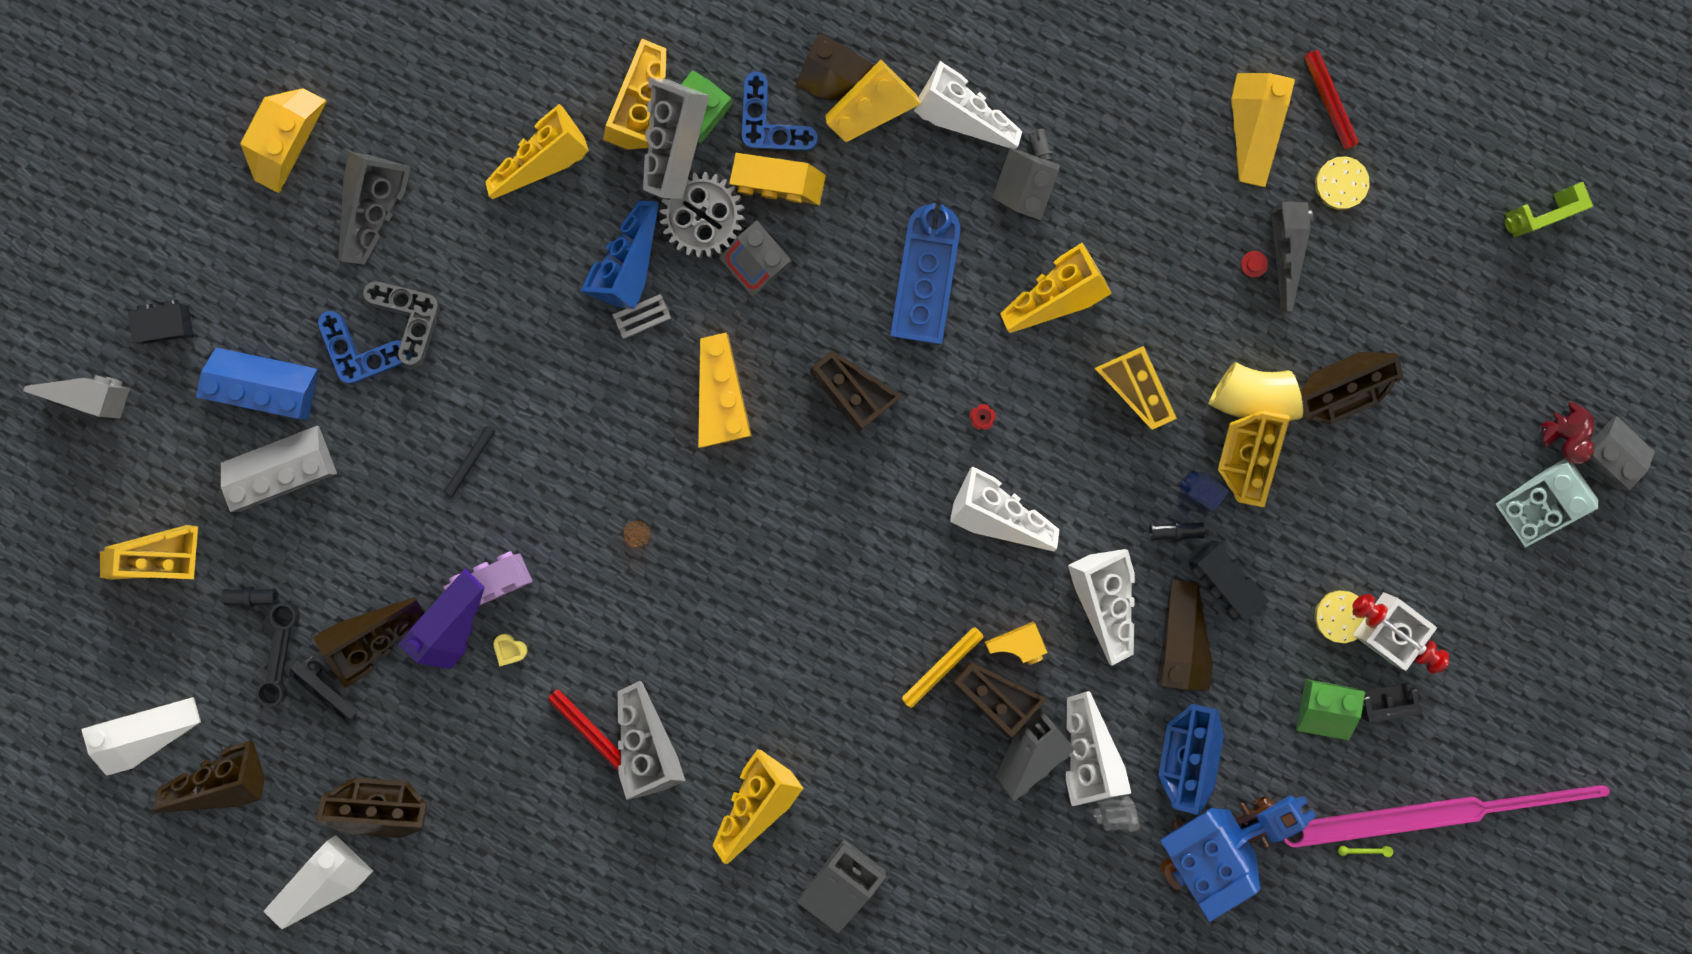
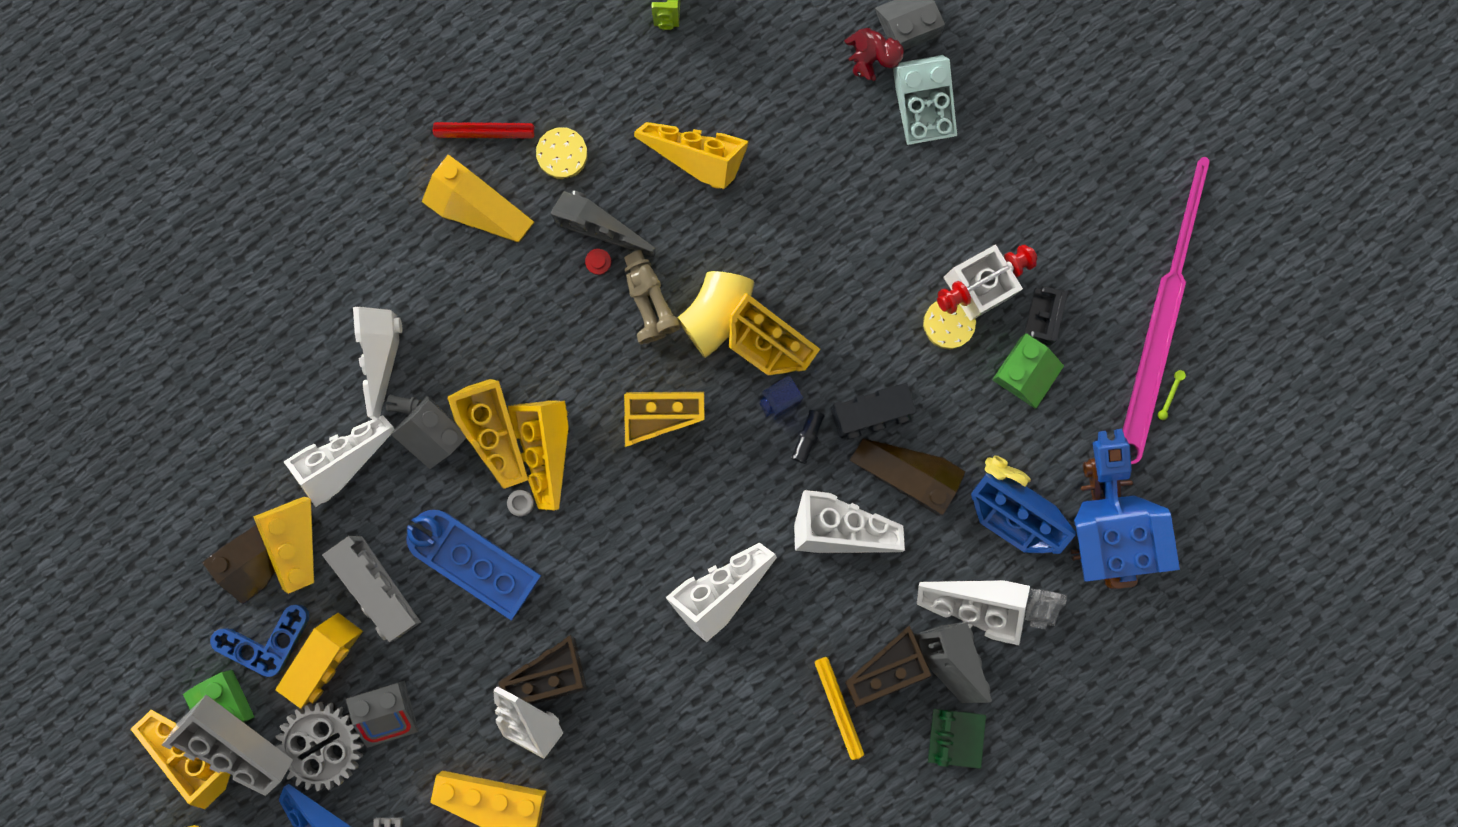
camera: 70 degrees left, 5 degrees down
(808, 390) = (526, 724): none -> white wedge
(864, 196) = (372, 587): none -> light grey wedge
(962, 785) = (956, 738): none -> dark green hinge
(989, 414) = (618, 565): red plate -> none
(998, 295) = (520, 503): none -> light grey tile
(1022, 642) = (847, 624): yellow arch -> none
(1058, 232) = (486, 424): none -> yellow wedge
(1094, 94) = (379, 339): none -> white wedge
(1226, 720) = (999, 469): none -> light yellow plate
(1252, 315) = (642, 283): none -> dark tan piece
(1350, 386) = (745, 226): dark brown wedge -> none
(1397, 317) = (703, 157): none -> yellow wedge

